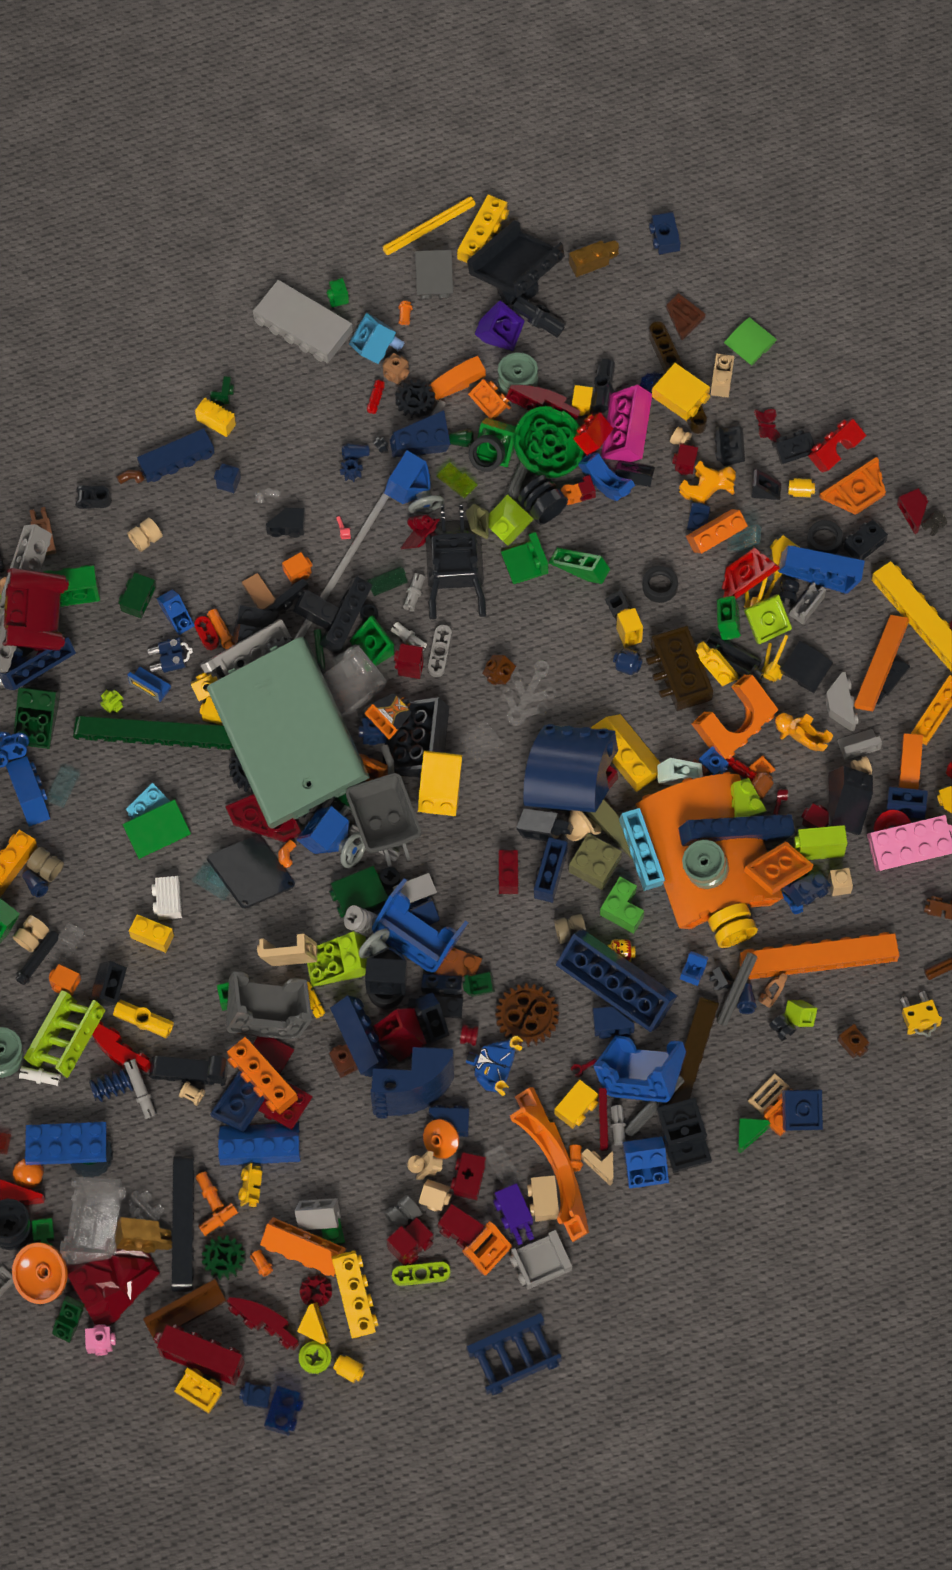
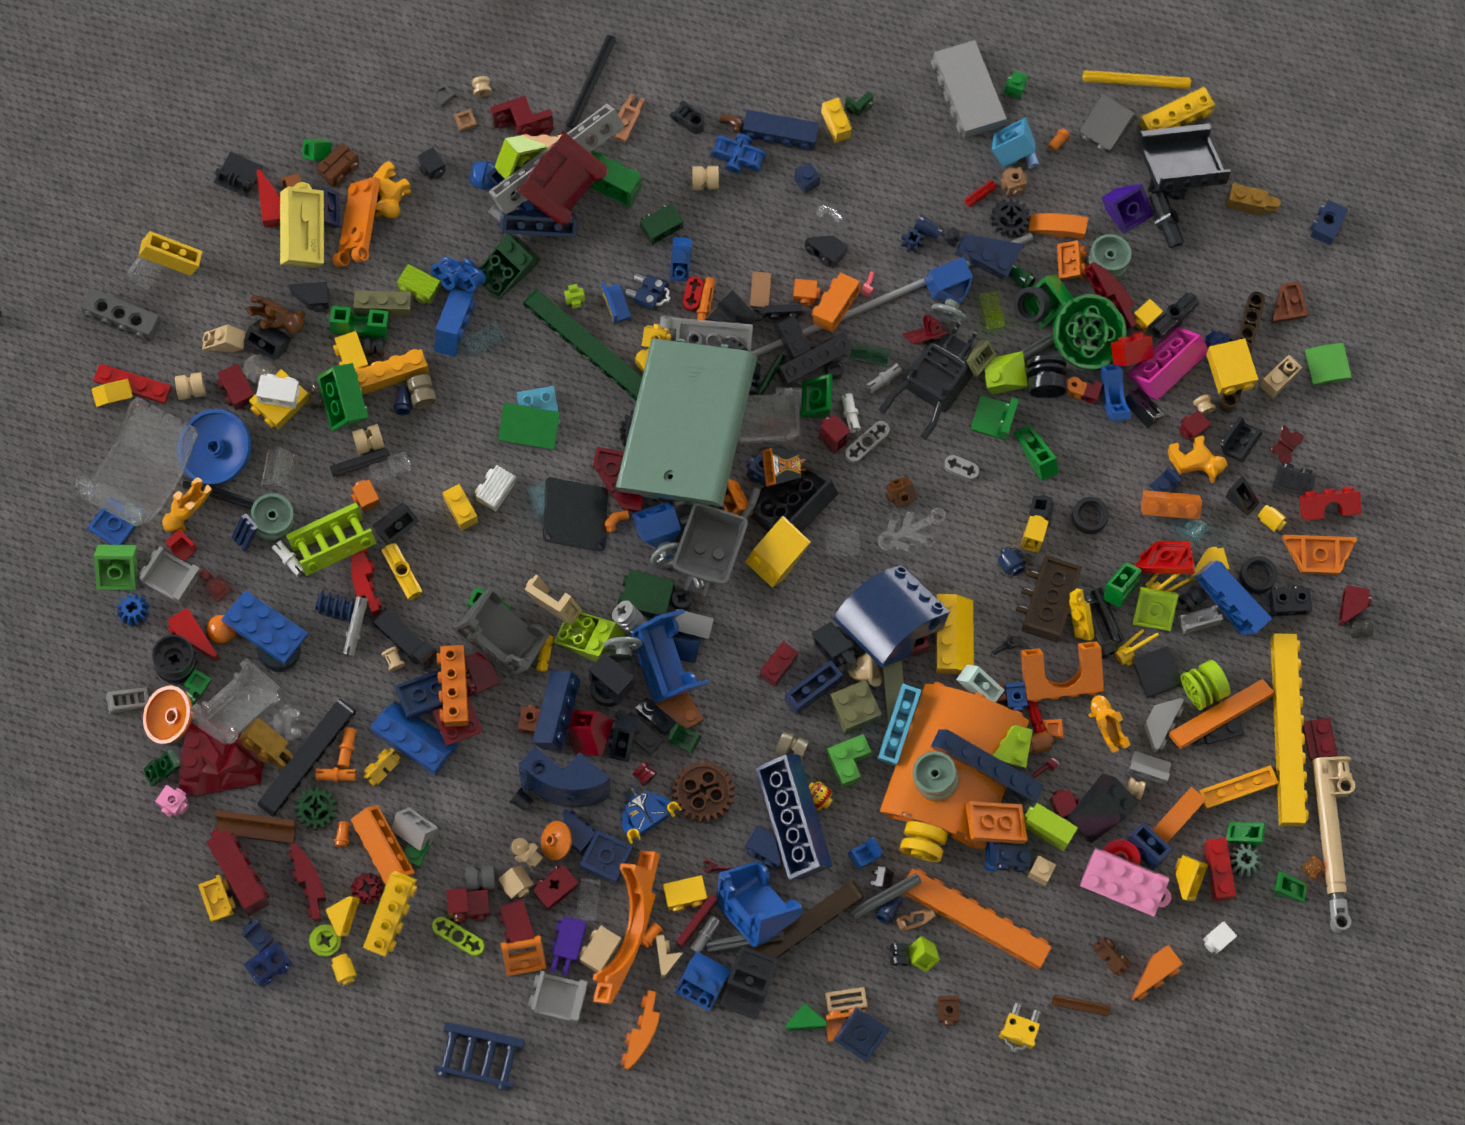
camera: 30 degrees right, 5 degrees up
(162, 496) = (738, 156): none -> blue axle
(328, 559) = (836, 302): none -> orange brick
(386, 1128) = (521, 799): none -> black piece
(492, 1122) = (605, 857): none -> dark blue container
(531, 621) = (960, 472): none -> light grey beam
(632, 1243) = (640, 1039): none -> orange slope
(674, 729) = (1007, 644): none -> black hand
(852, 648) = (1205, 684): none -> lime wheel

